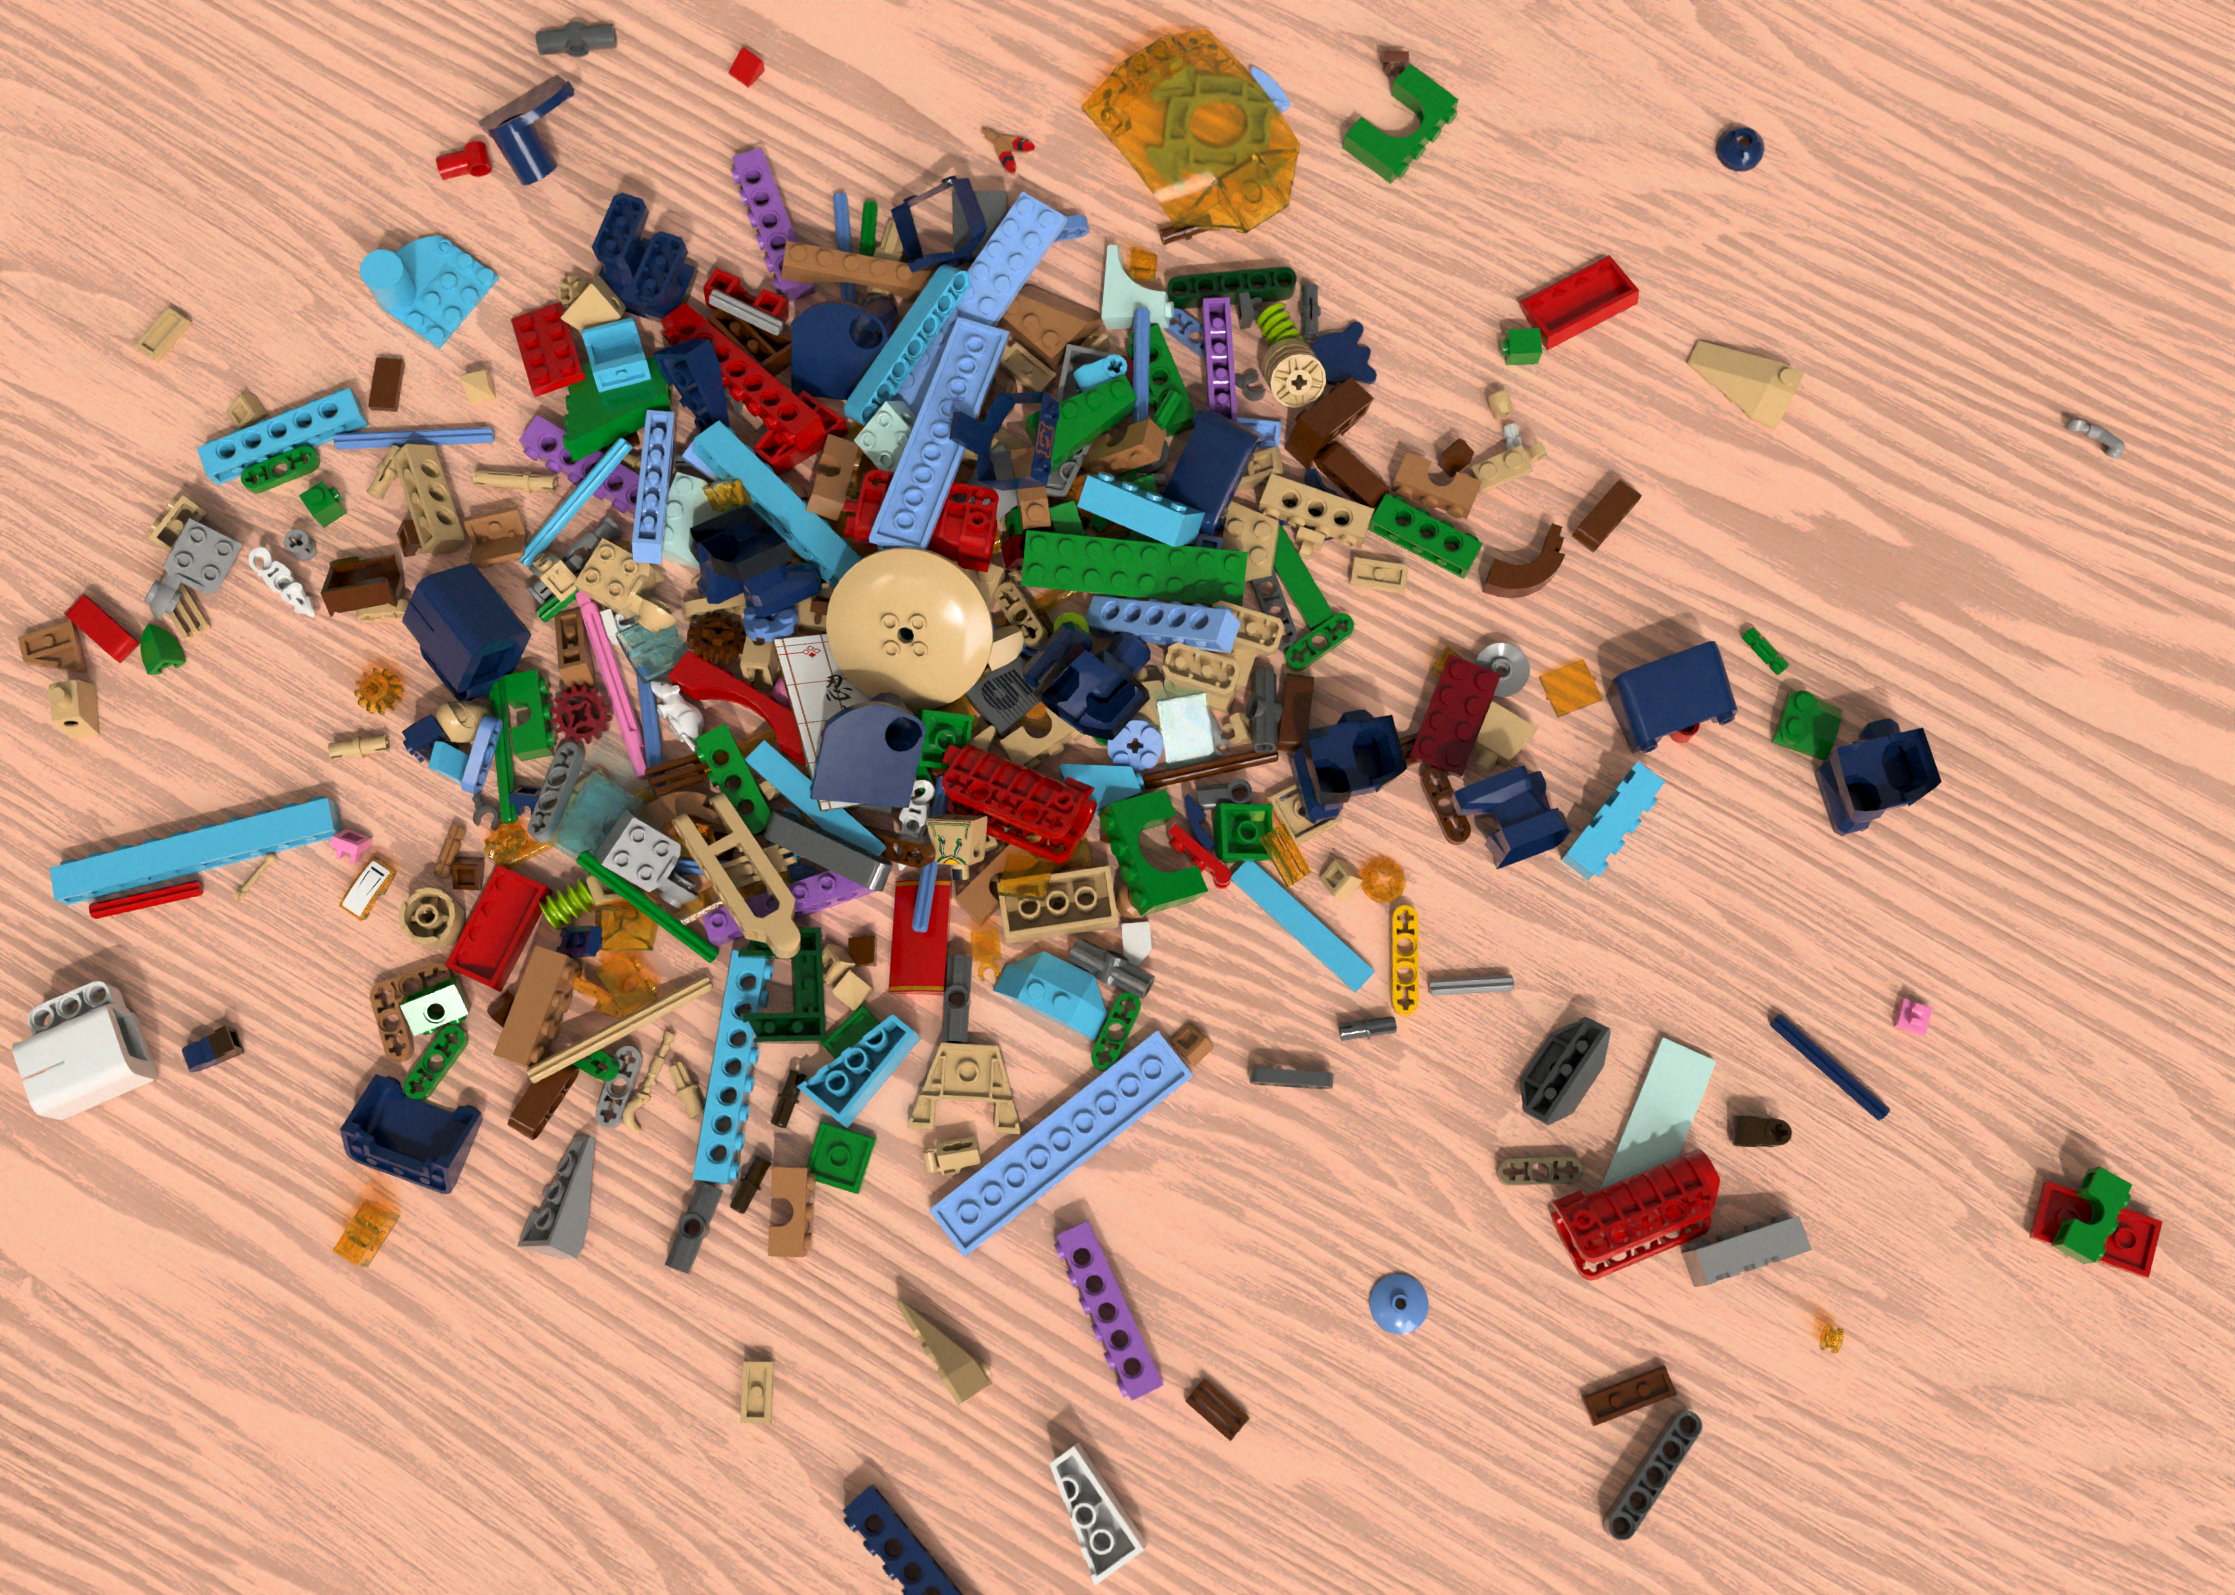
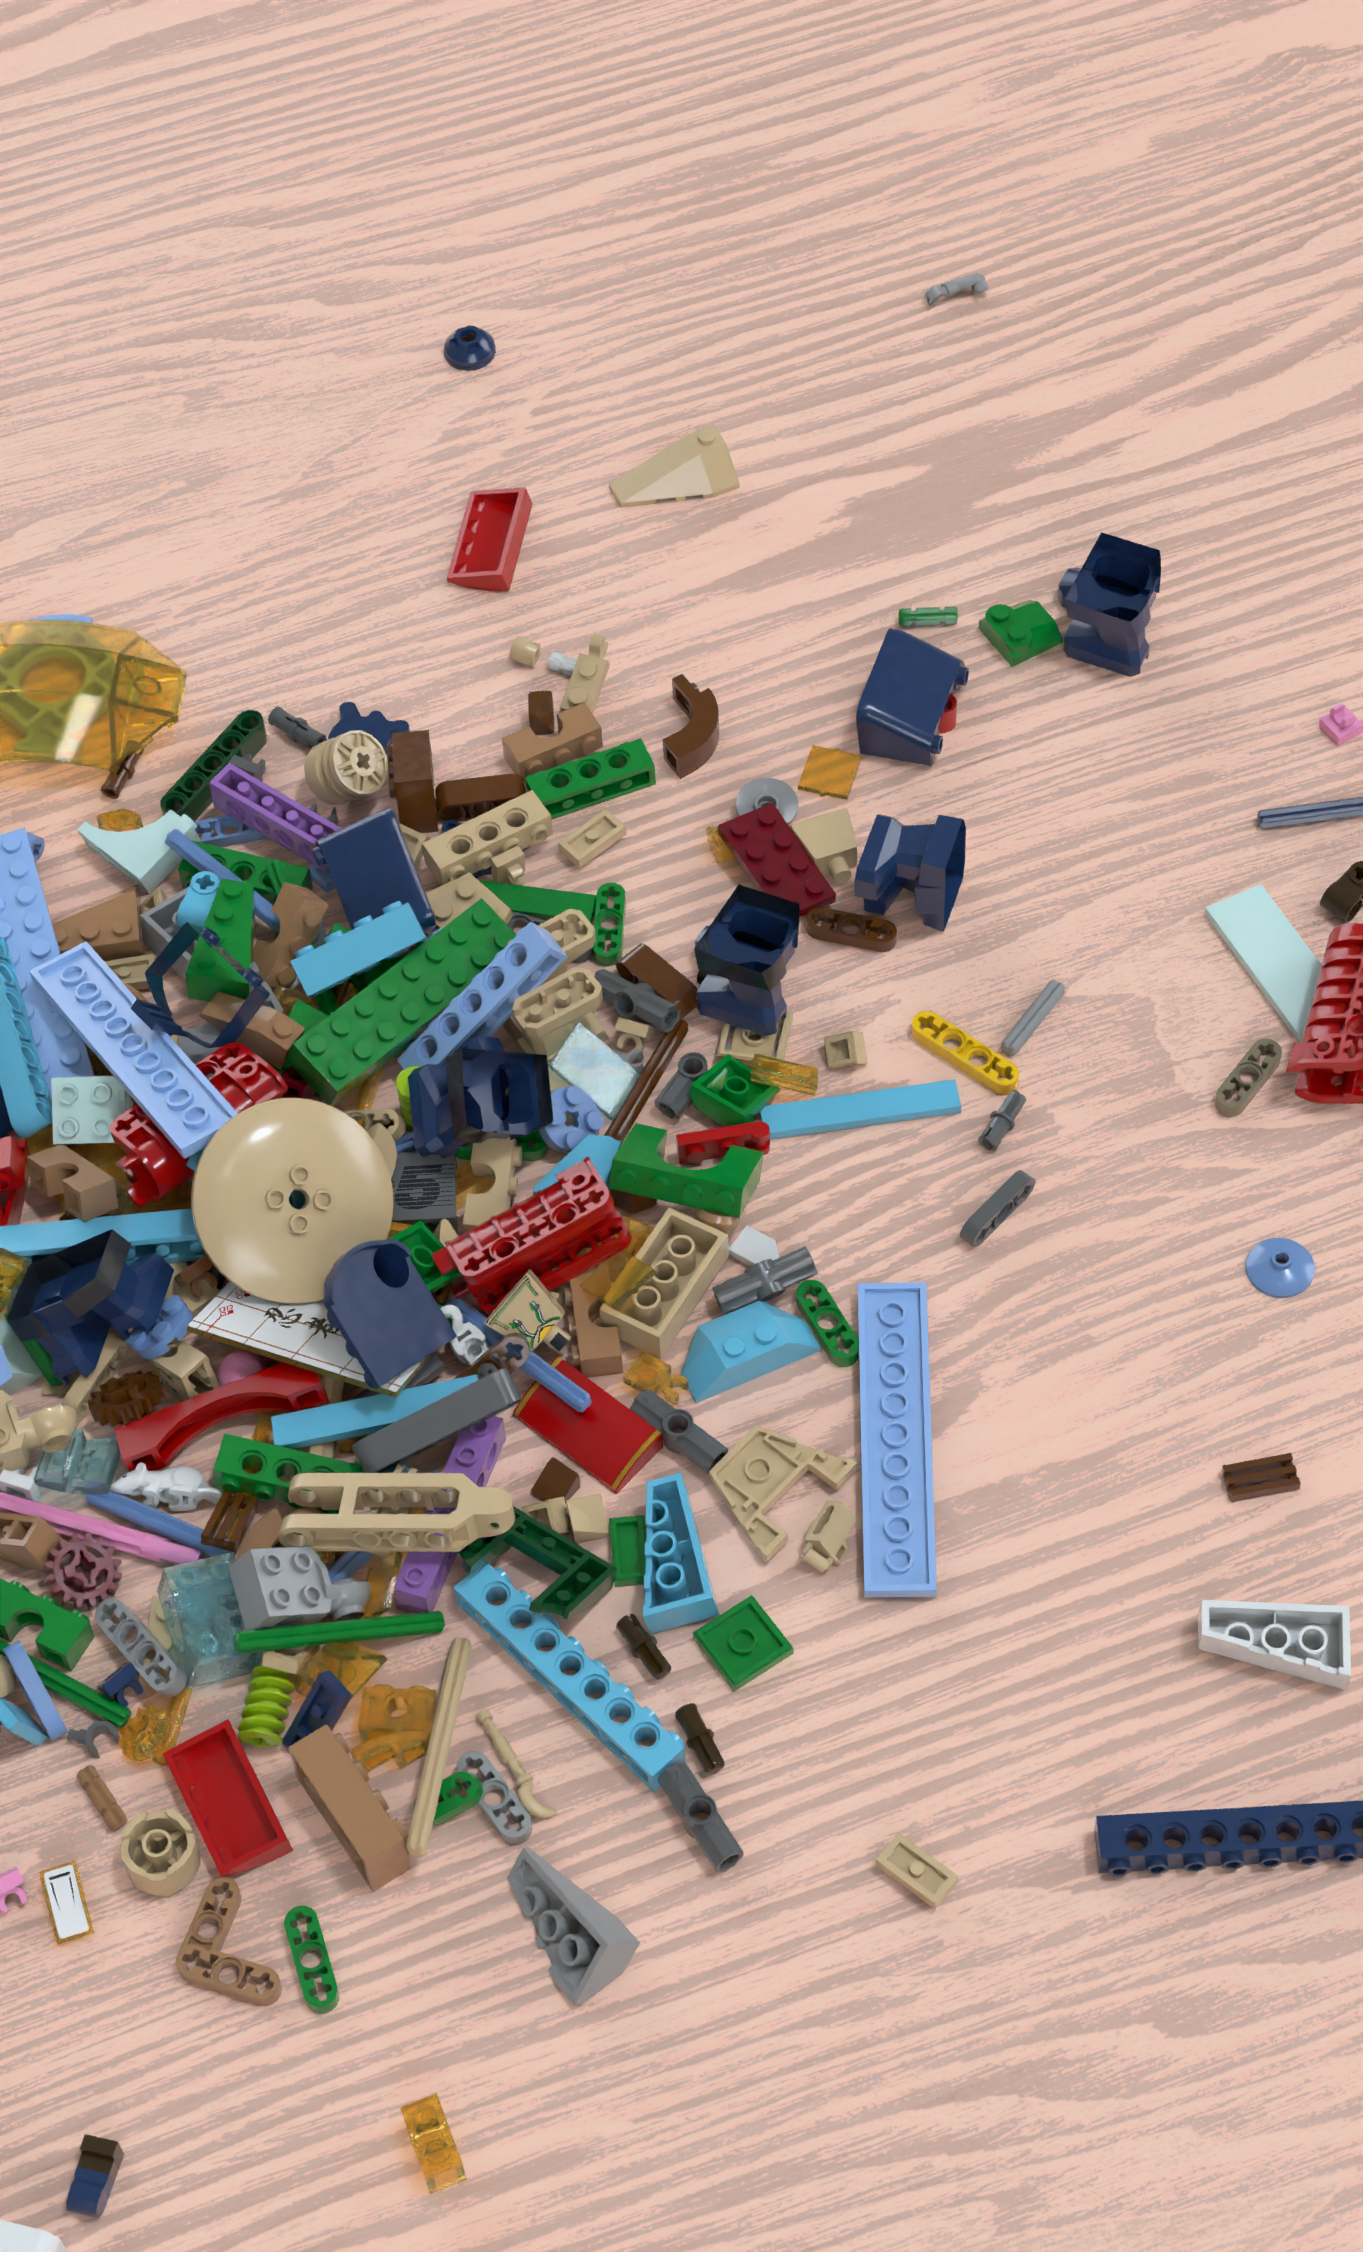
camera: 50 degrees left, 20 degrees down
(409, 1136) = (375, 2032): dark blue windscreen -> none
(446, 993) = (240, 1925): brick -> none
(468, 873) = (141, 1795): reddish brown slope -> none
(500, 1008) = (317, 1853): reddish brown slope -> none
(541, 1102) = (445, 1879): reddish brown beam -> none
(686, 1090) = (554, 1735): tan axle -> none
(794, 1185) = (741, 1689): medium nougat arch -> none
(957, 1368) = (1031, 1669): tan wedge -> none
(1084, 1238) = (1080, 1486): medium lavender brick -> none
(1191, 1044) = (894, 1267): medium nougat slope -> none
(1195, 818) = (679, 1120): dark blue slope -> none
(1275, 326) = (285, 761): lime piece -> none
(1379, 892) = (888, 1025): clear yellow gear -> none
(1392, 155) = (216, 578): green arch -> none
(1394, 58) = (132, 518): reddish brown tile -> none
(1522, 346) = (490, 601): green brick -> none
(1564, 1070) = (1170, 991): dark grey wedge -> none
(1606, 515) = (701, 643): reddish brown beam -> none
(1613, 820) = (979, 804): medium azure wedge -> none

